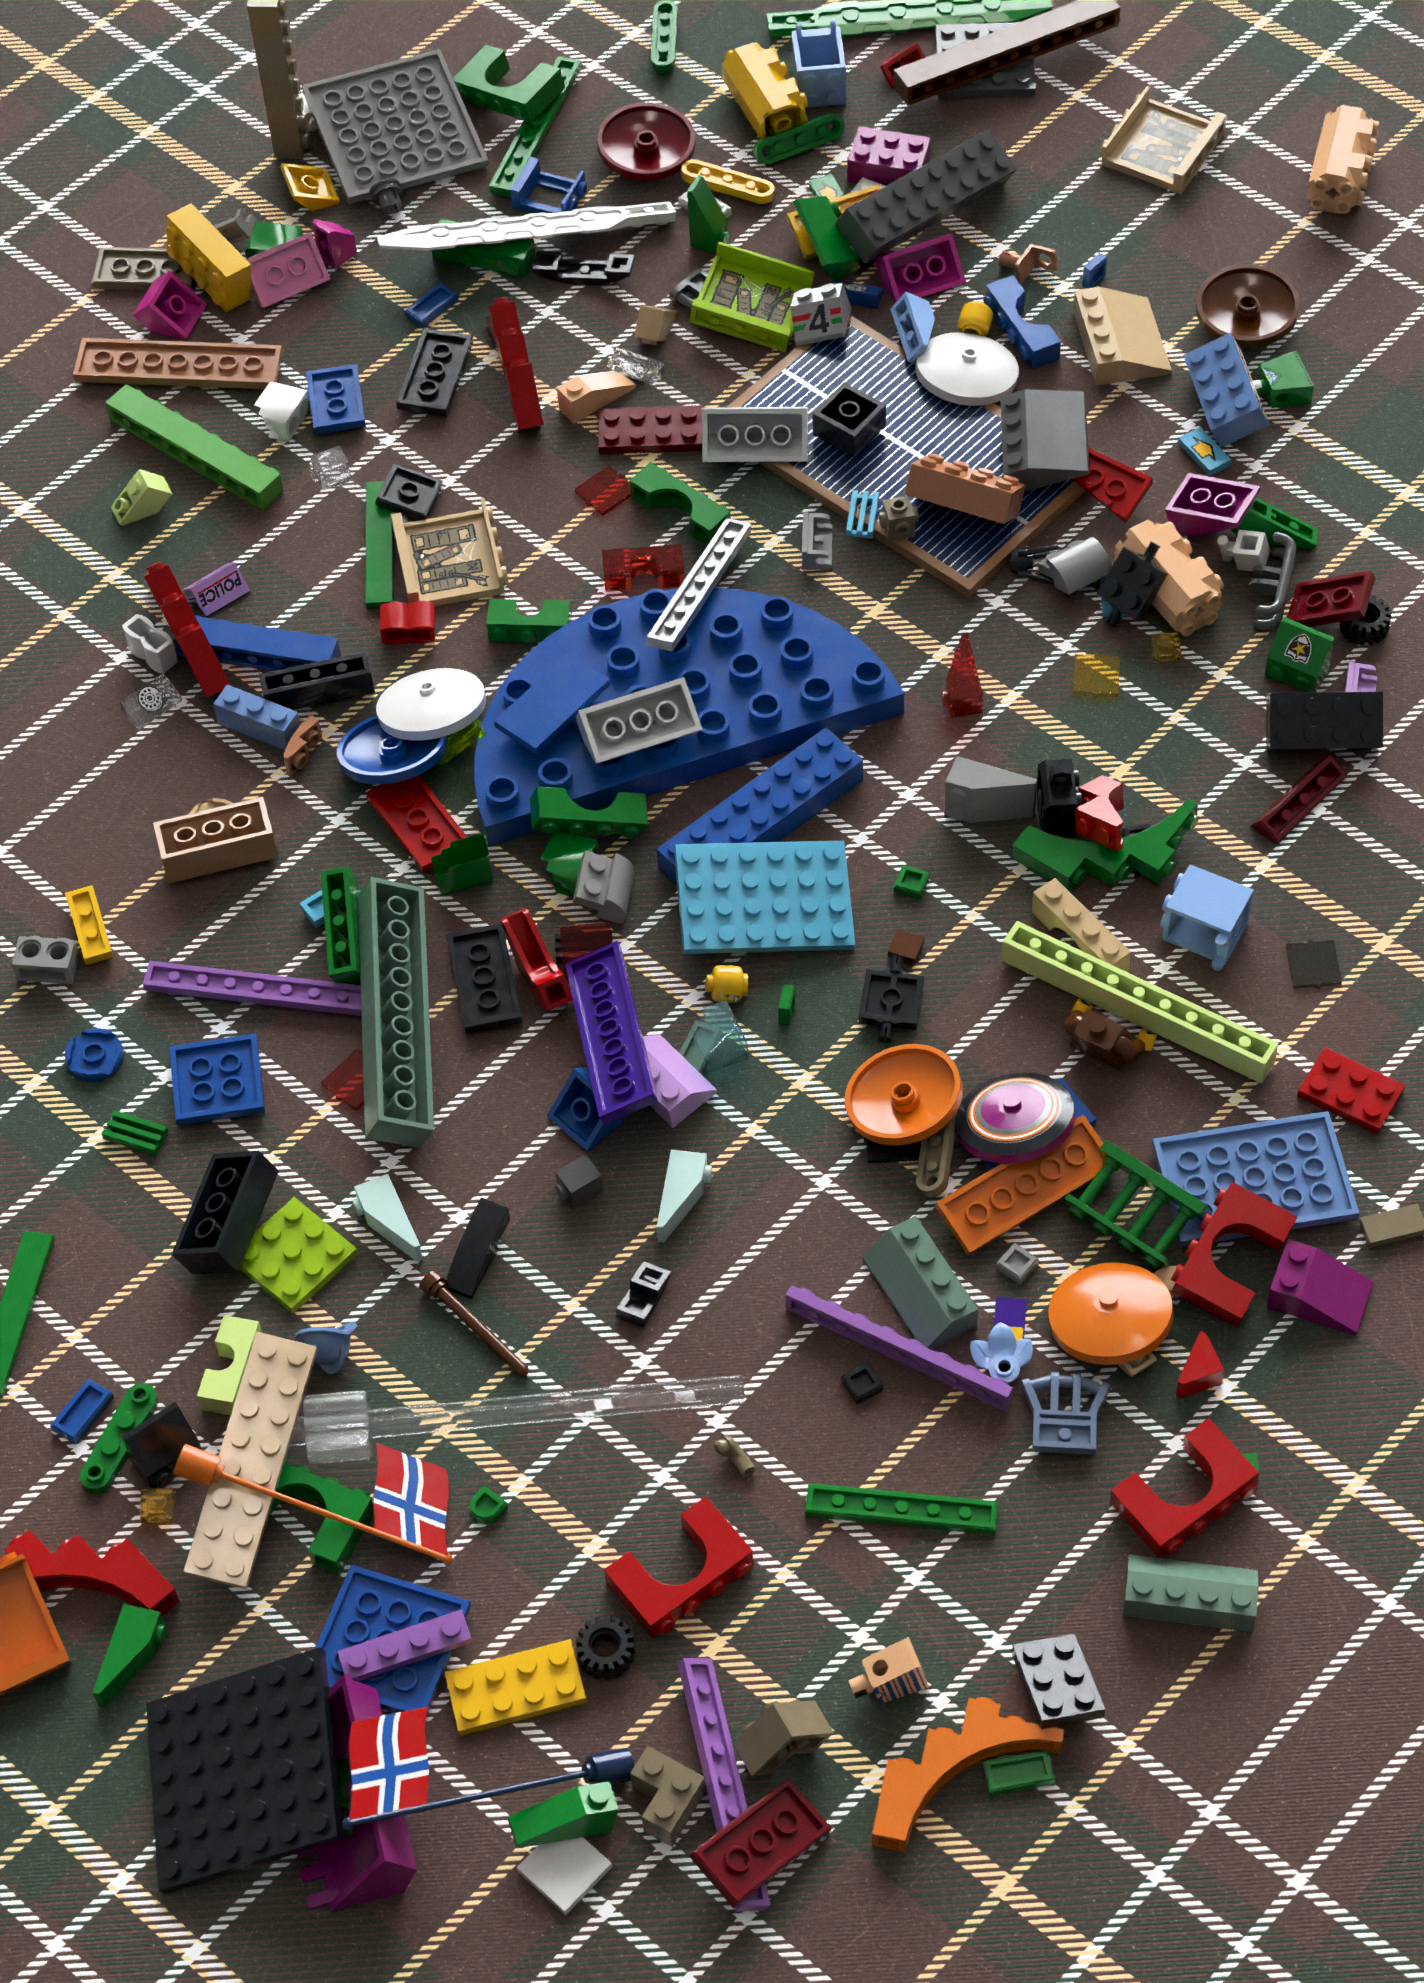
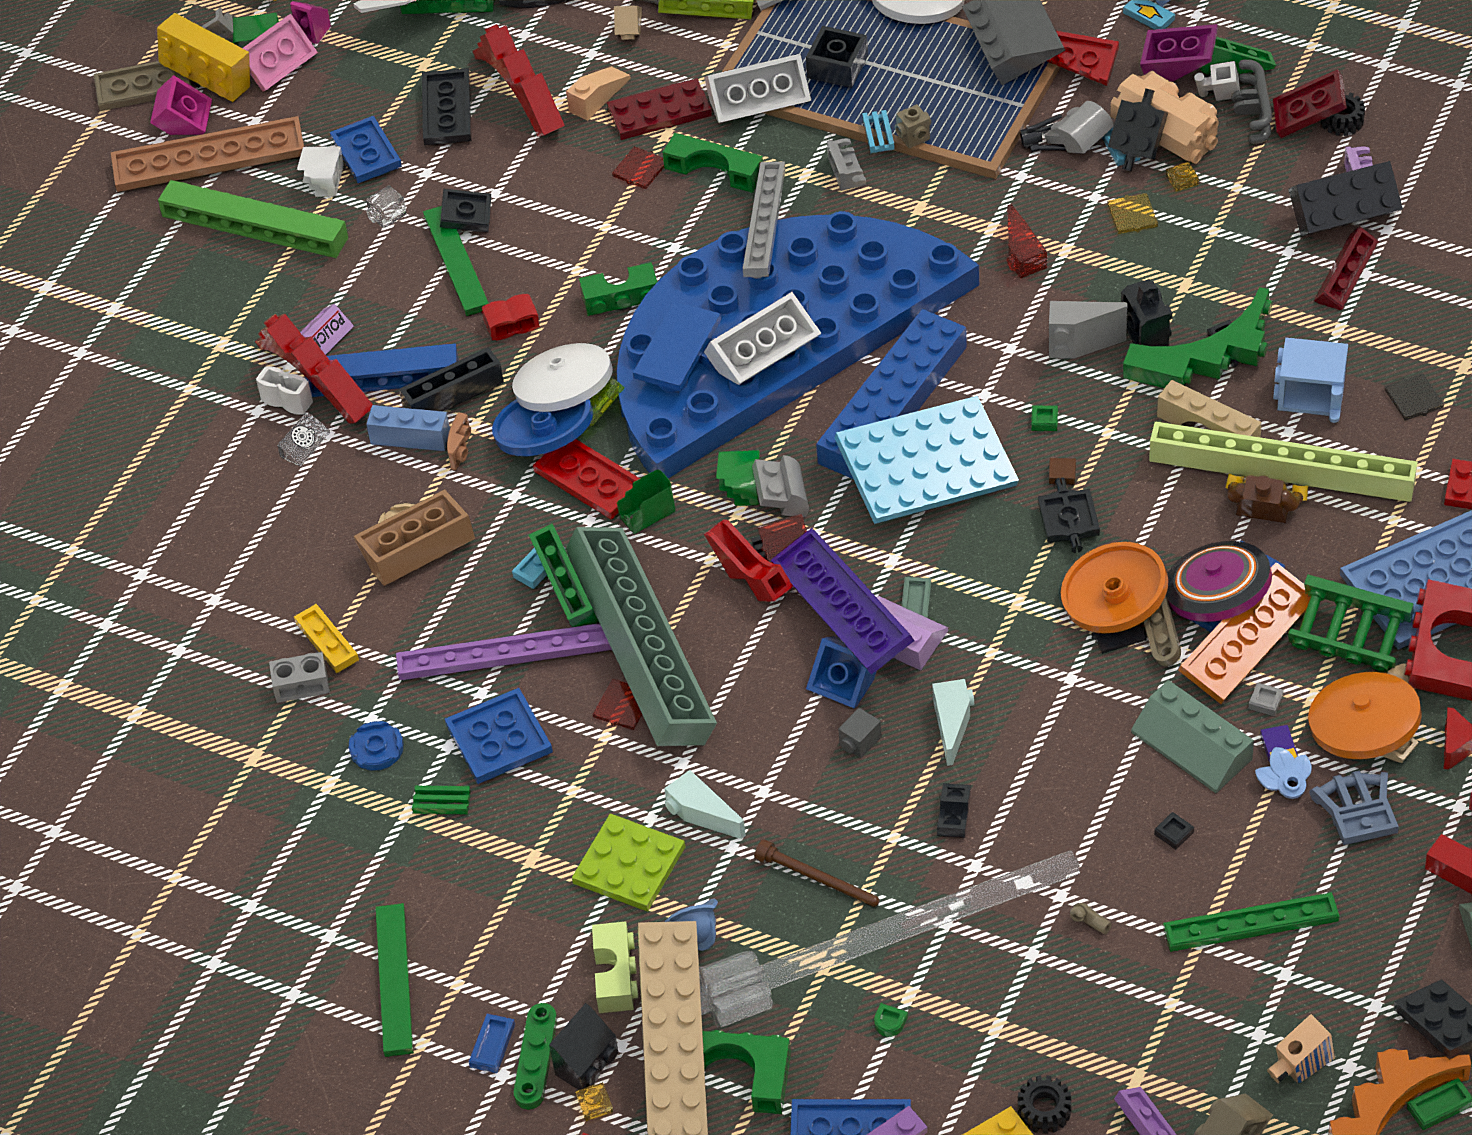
camera: 15 degrees left, 5 degrees down
(141, 497) = (222, 272): yellowish green slope -> none
(225, 1212) = (557, 840): black brick -> none
(407, 1497) = (816, 1028): flag -> none
(431, 305) = (418, 53): blue tile -> none
(450, 557) = (525, 254): tan panel -> none
(477, 1247) = (793, 810): black slope -> none
(484, 978) = (703, 590): black plate -> none
(555, 811) = (716, 433): green arch -> none
(624, 564) = (717, 212): clear red arch -> none
(636, 366) = (625, 59): clear slope -> none
(661, 1605) = (1077, 1055): red arch -> none
(720, 1037) = (936, 582): clear light blue piece -> none
(727, 983) = (921, 539): yellow head -> none
(786, 1005) = (980, 543): green tile -> none
(906, 1351) = (1195, 792): medium lavender plate -> none
(965, 489) = (963, 87): nougat brick -> none
(1098, 814) = (1189, 321): red arch -> none
(1299, 656) = (1302, 153): green slope -> none

